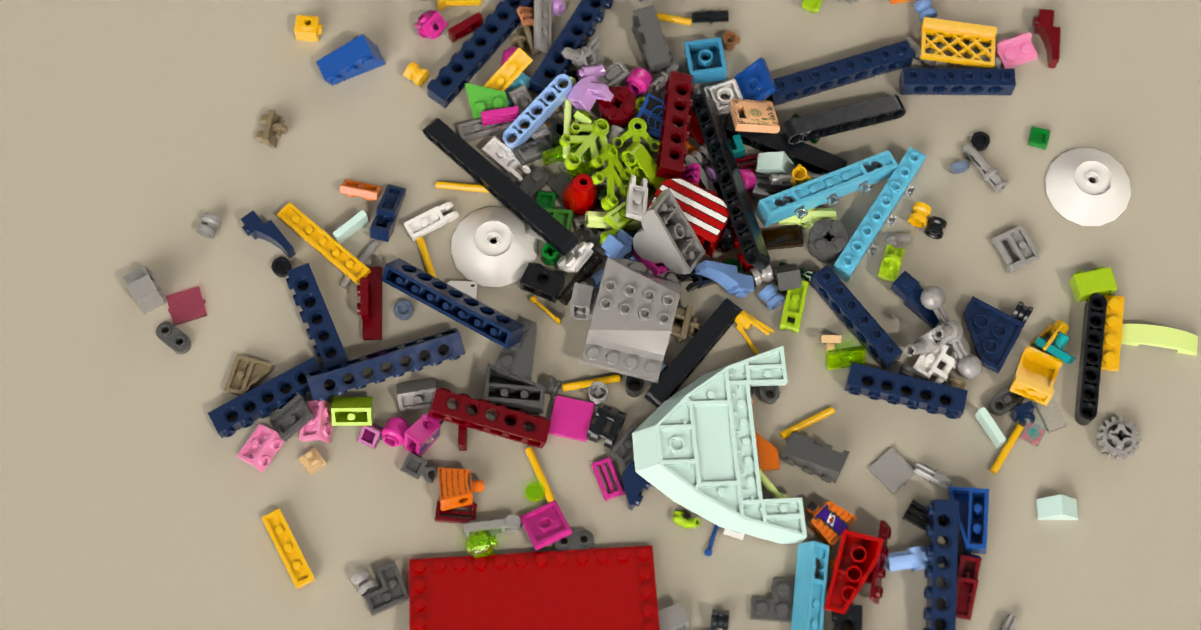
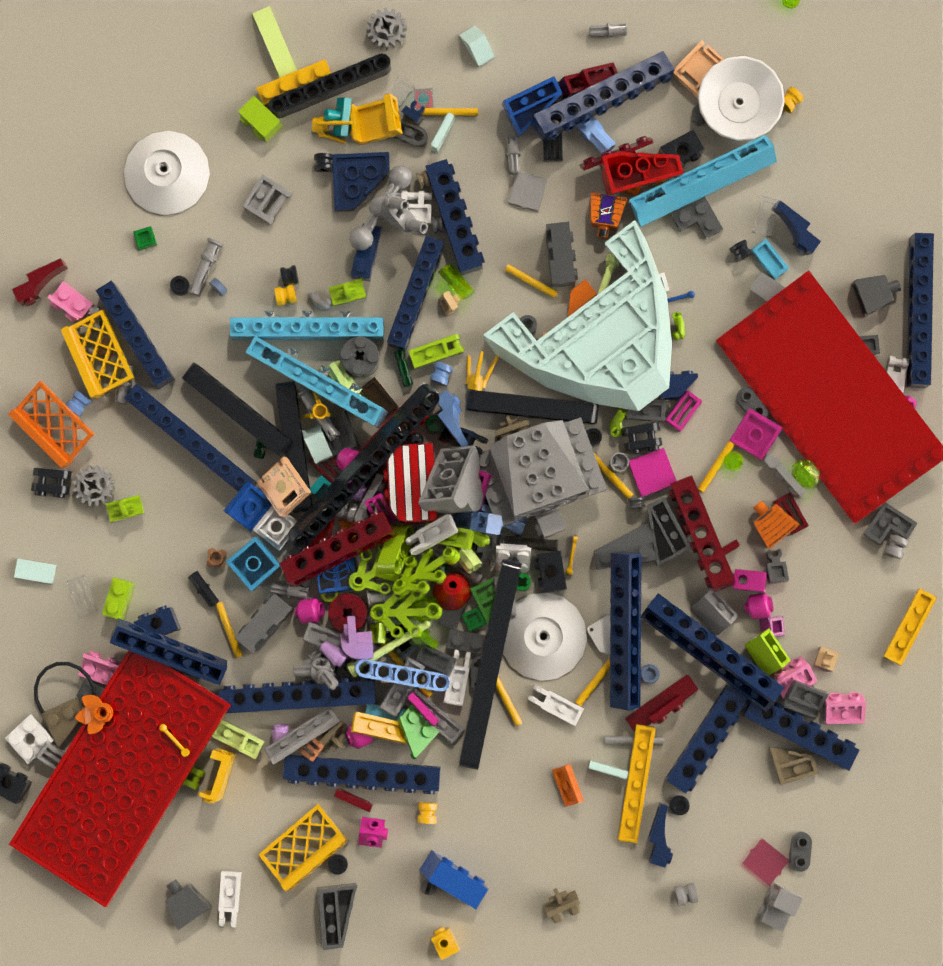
camera: 115 degrees left, 15 degrees up
(387, 213) = (573, 746): dark blue slope -> none
(632, 413) = (616, 423): none -> lime arm
(787, 277) = (415, 370): dark grey panel -> none

